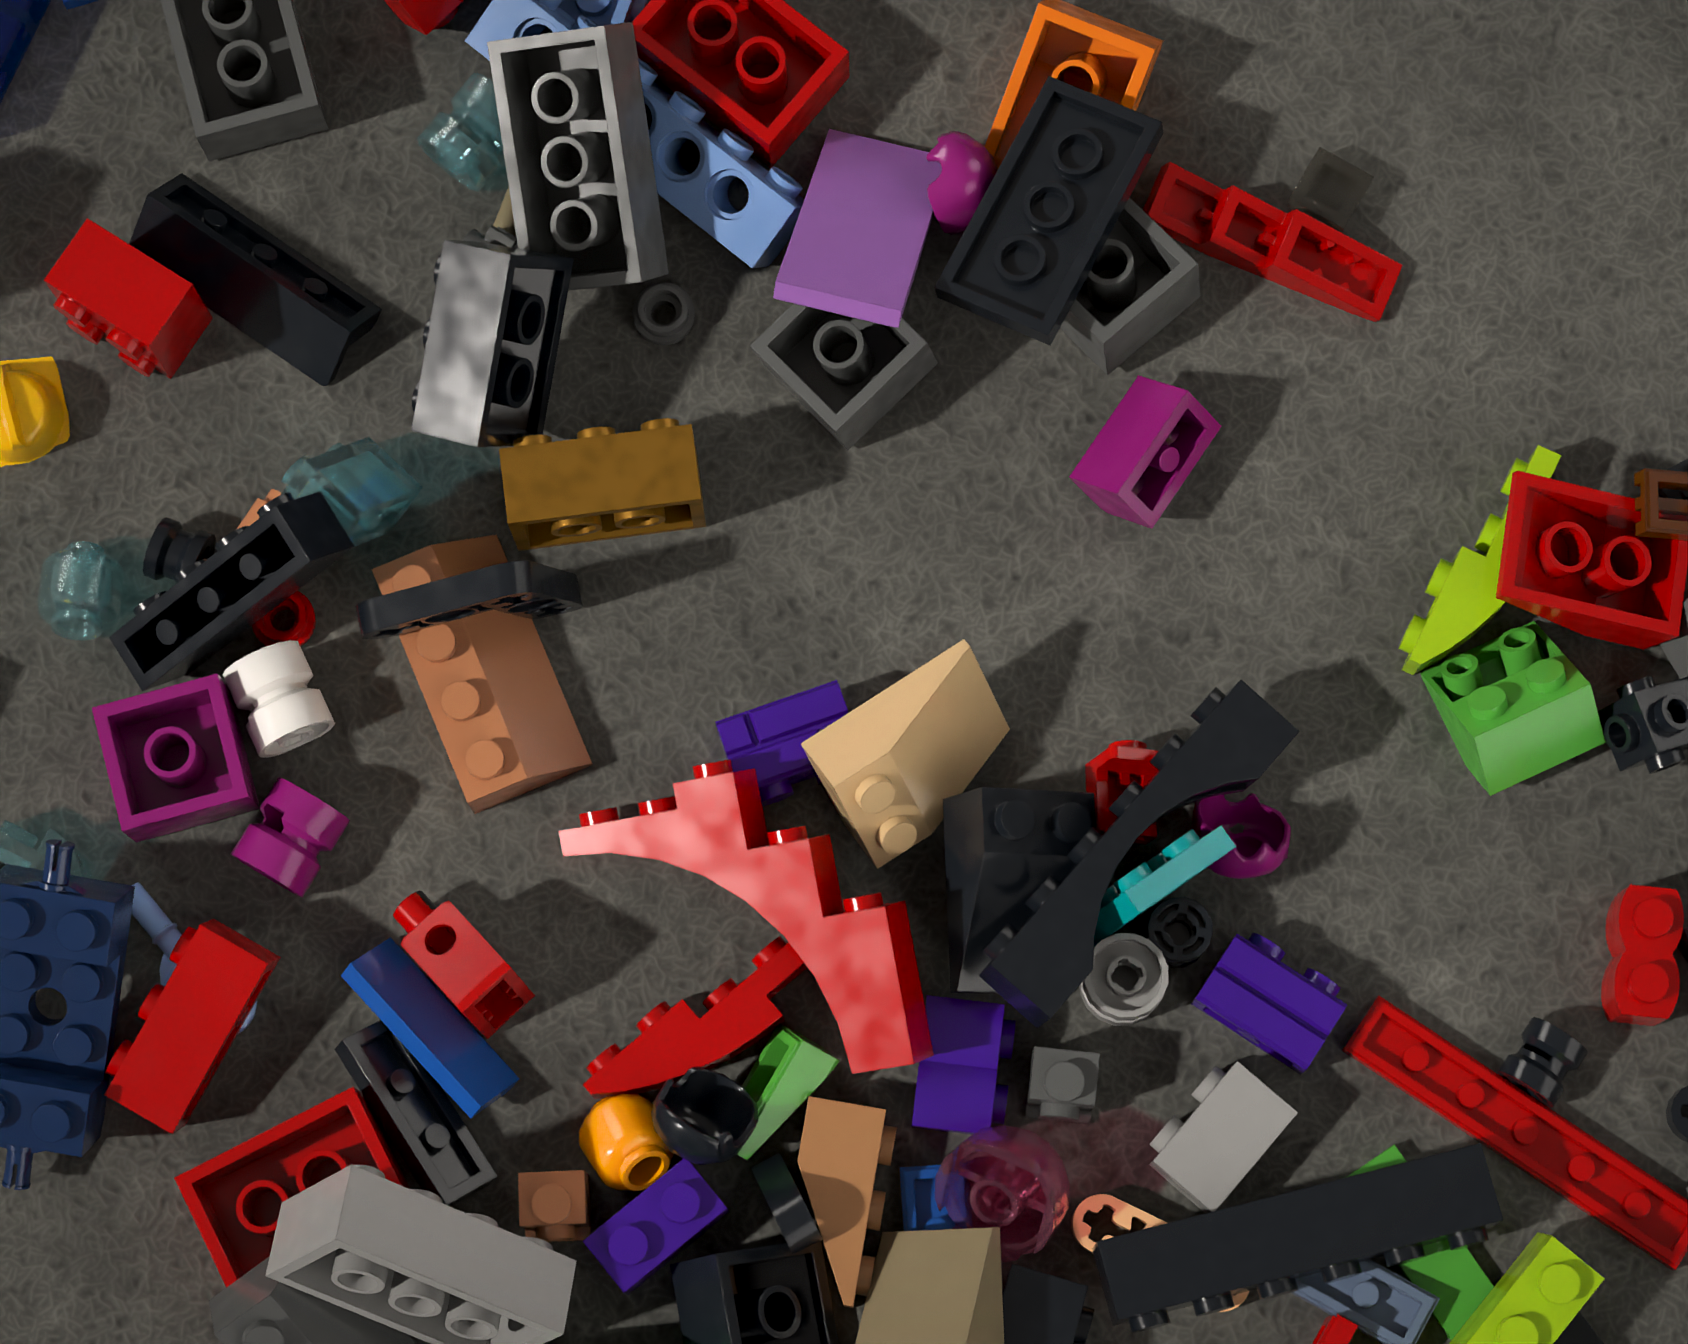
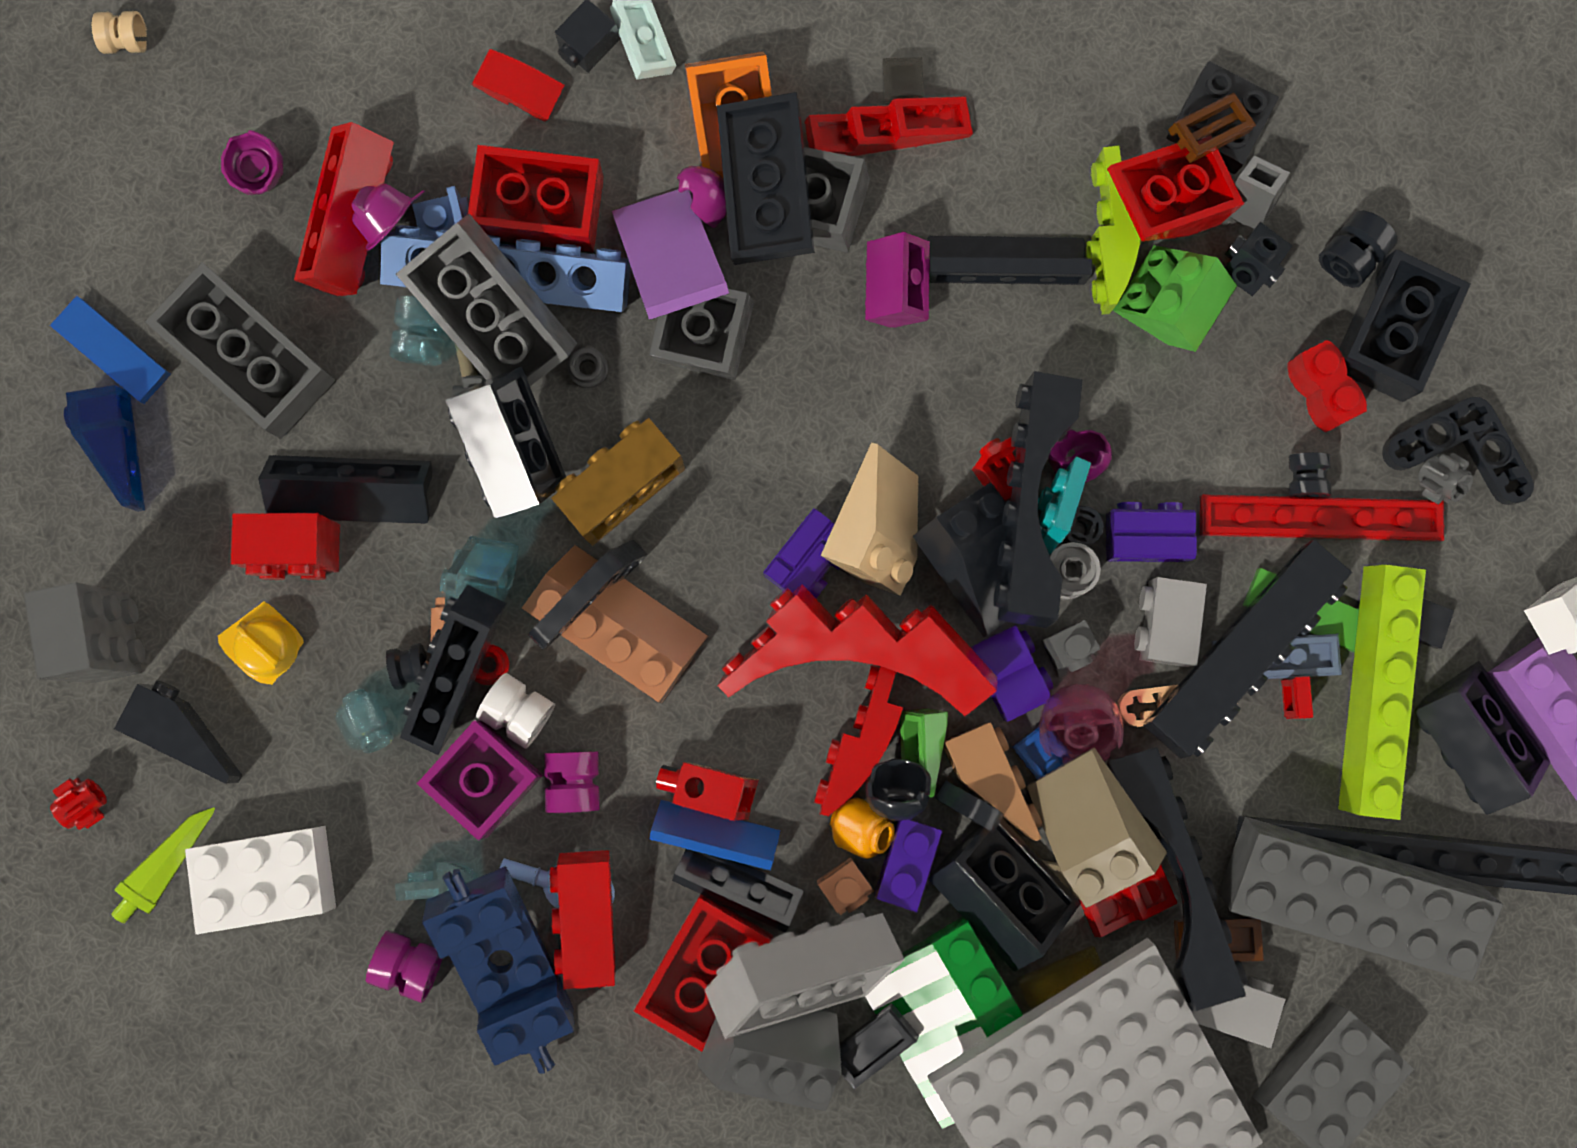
camera: 40 degrees left, 5 degrees up
(1316, 516) = (1008, 260): none -> black panel

